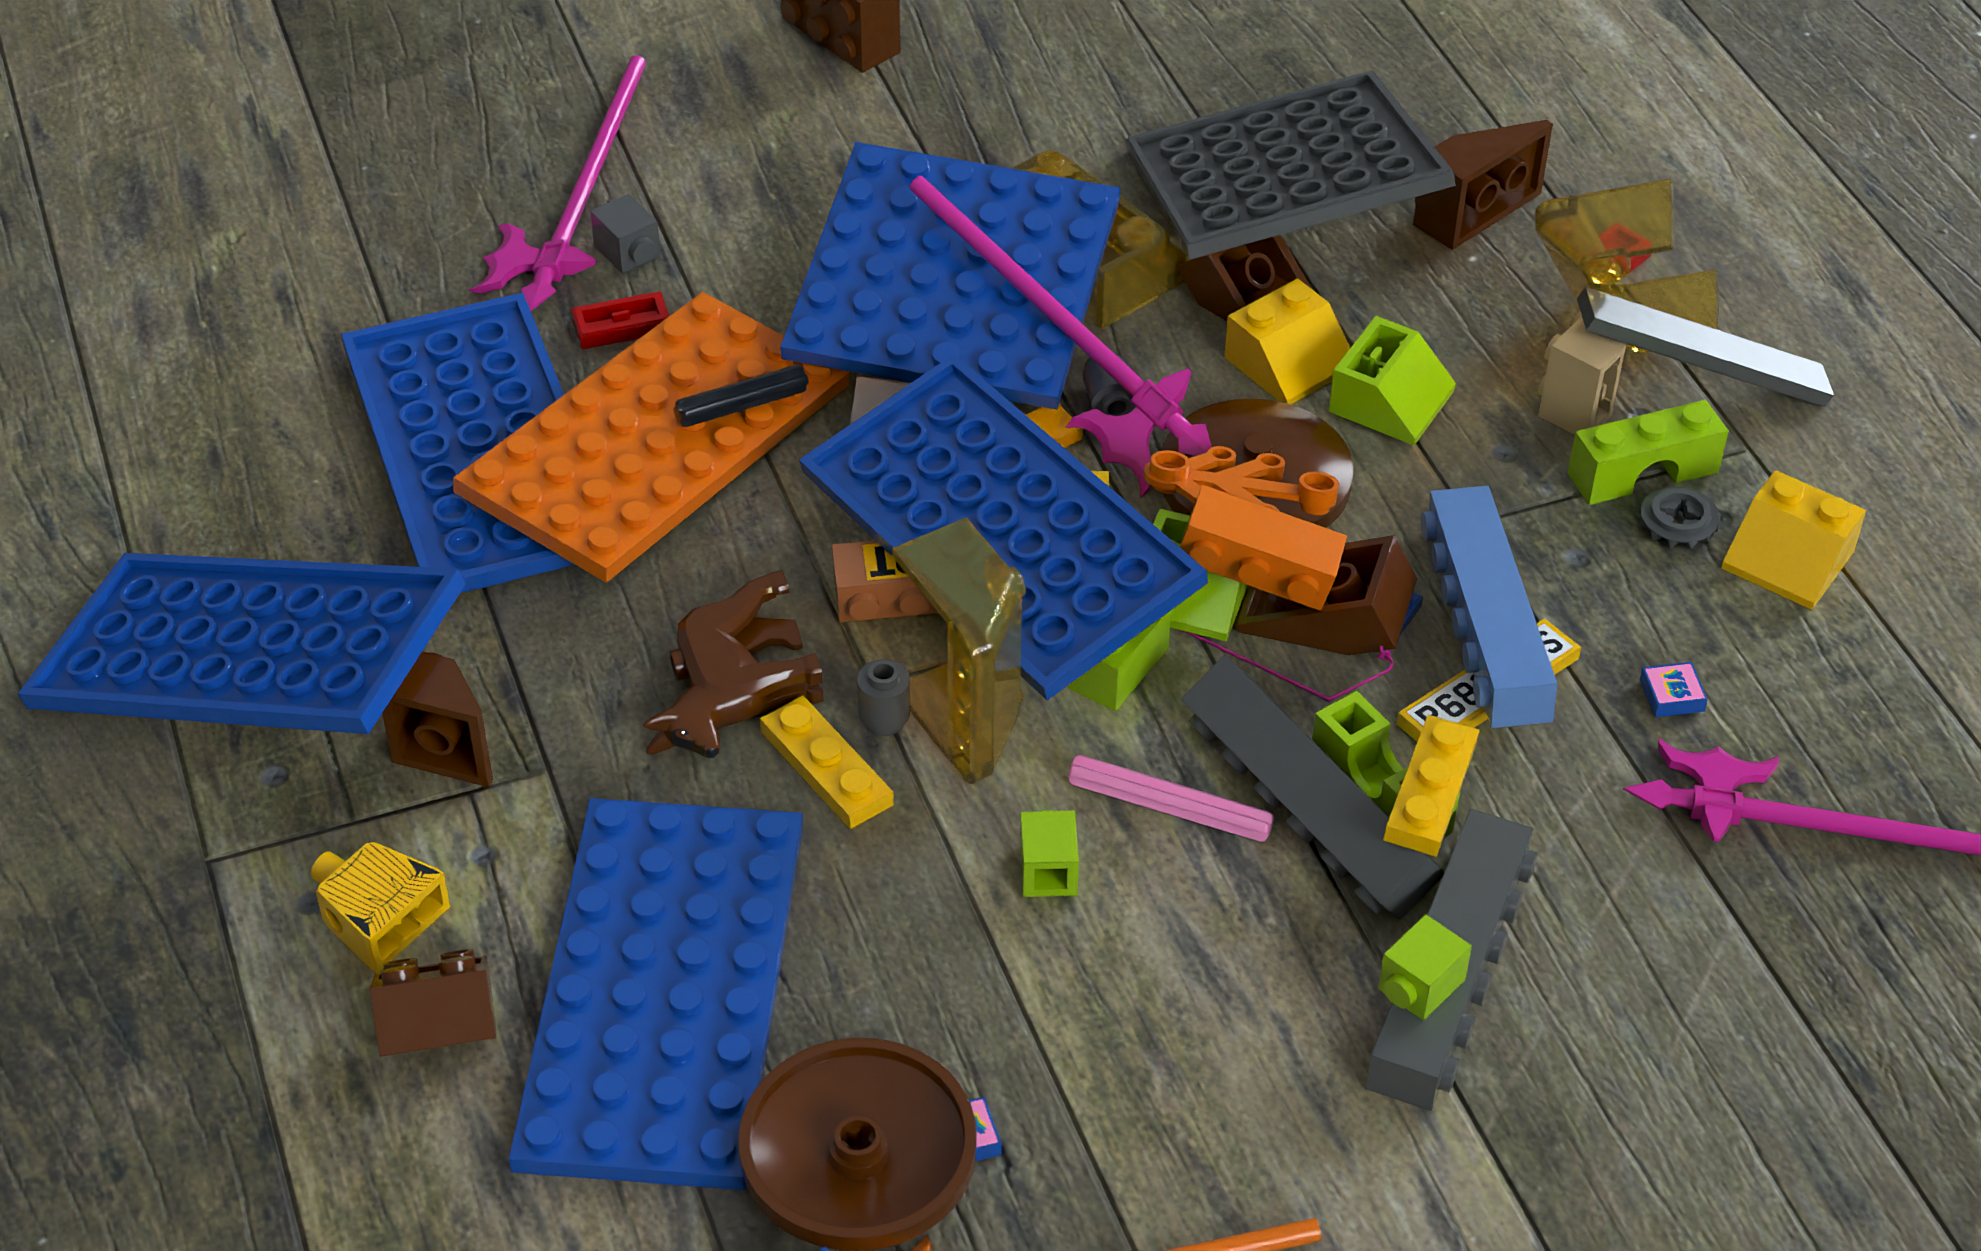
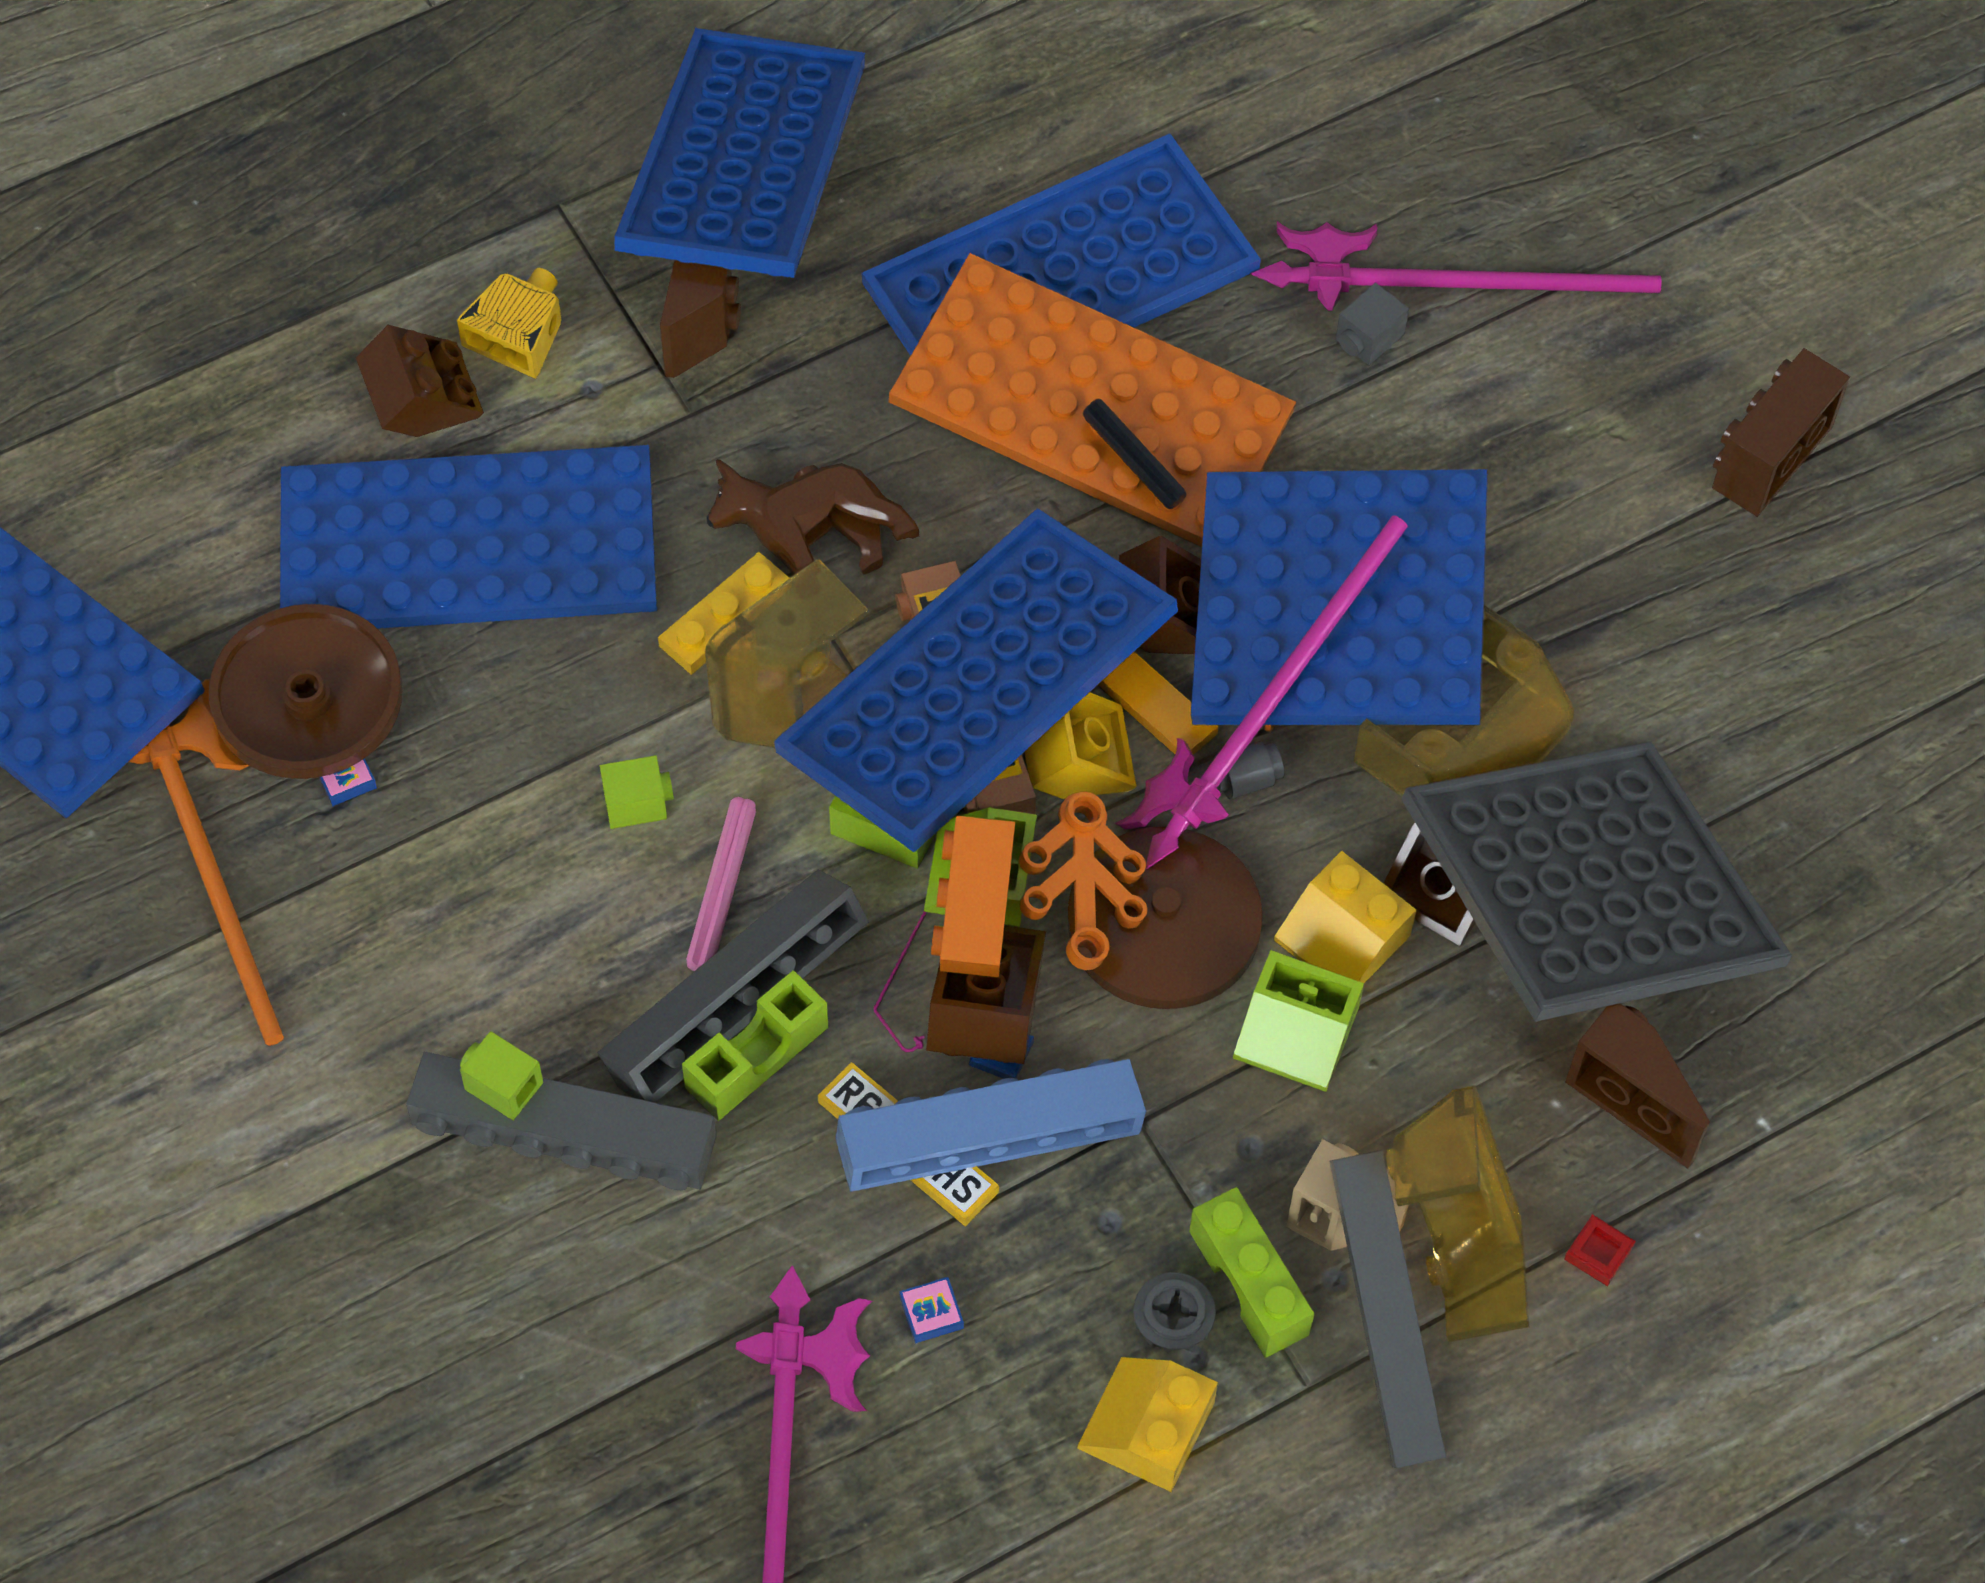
camera: 80 degrees right, 15 degrees up
(618, 319) = (1274, 377): red tile -> none
(1431, 785) = (709, 1067): yellow plate -> none

